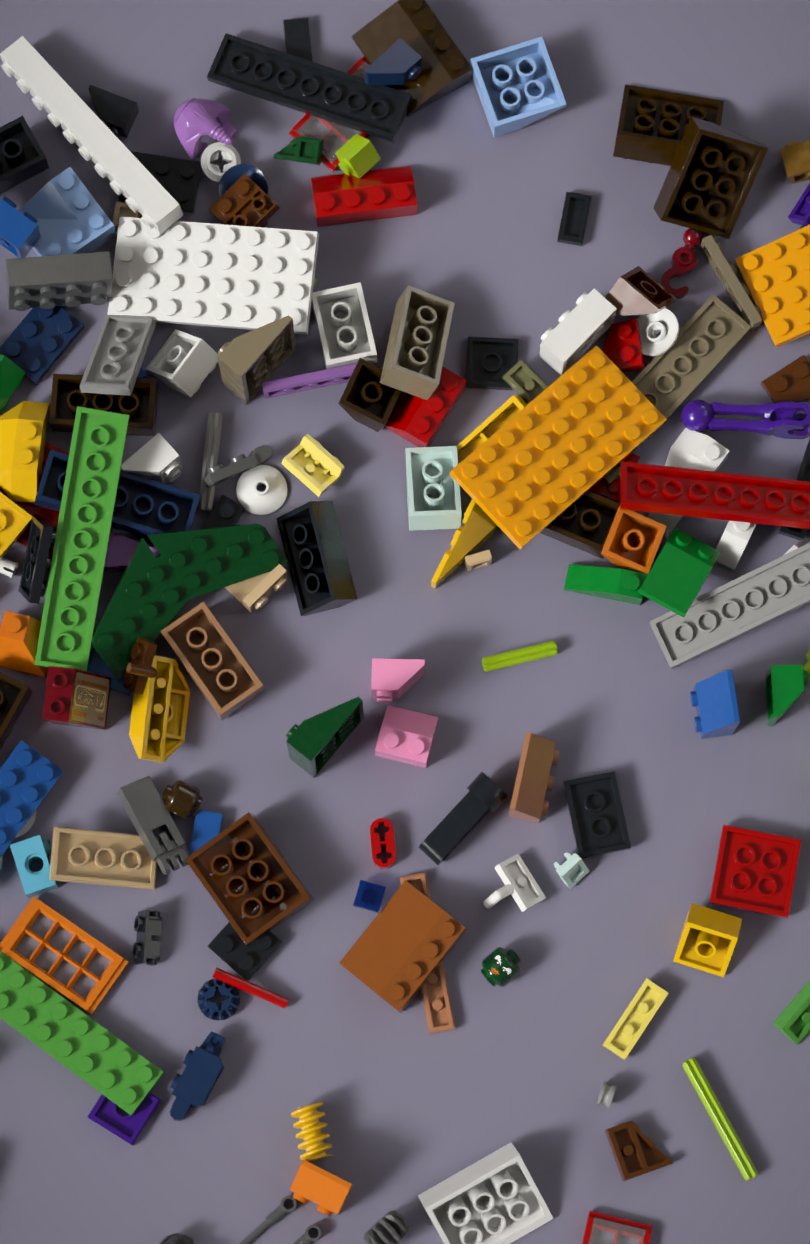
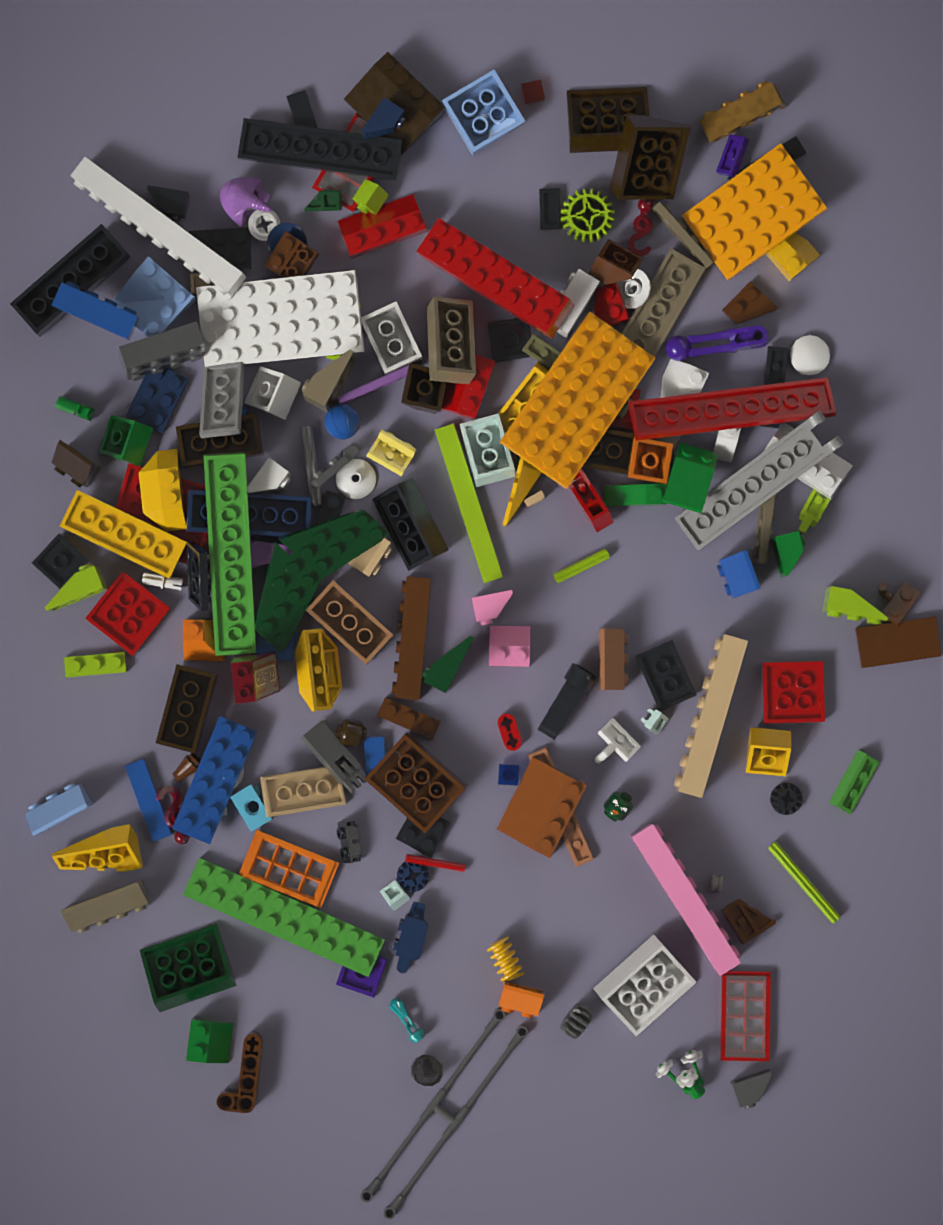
camera: 15 degrees left, 10 degrees up
(140, 666) = (296, 640): reddish brown plate -> none
(160, 1166) = (398, 1008): none -> teal piece
(190, 1019) = (394, 895): none -> light aqua slope
(259, 798) = (409, 718): none -> reddish brown plate
(260, 414) = (342, 421): none -> blue piece
(287, 698) = (413, 638): none -> reddish brown brick
(395, 550) = (468, 503): none -> lime tile
(489, 279) = (495, 278): none -> red brick
(547, 577) = (590, 502): none -> red slope
(561, 1102) = (685, 899): none -> bright pink brick
(583, 77) = (533, 91): none -> clear red tile
(609, 233) = (578, 217): none -> lime gear
(635, 1019) = (726, 822): light yellow plate -> none
(642, 880) = (711, 715): none -> tan brick
(707, 1010) = (781, 790): none -> black gear
(758, 662) = (763, 531): none -> dark tan plate

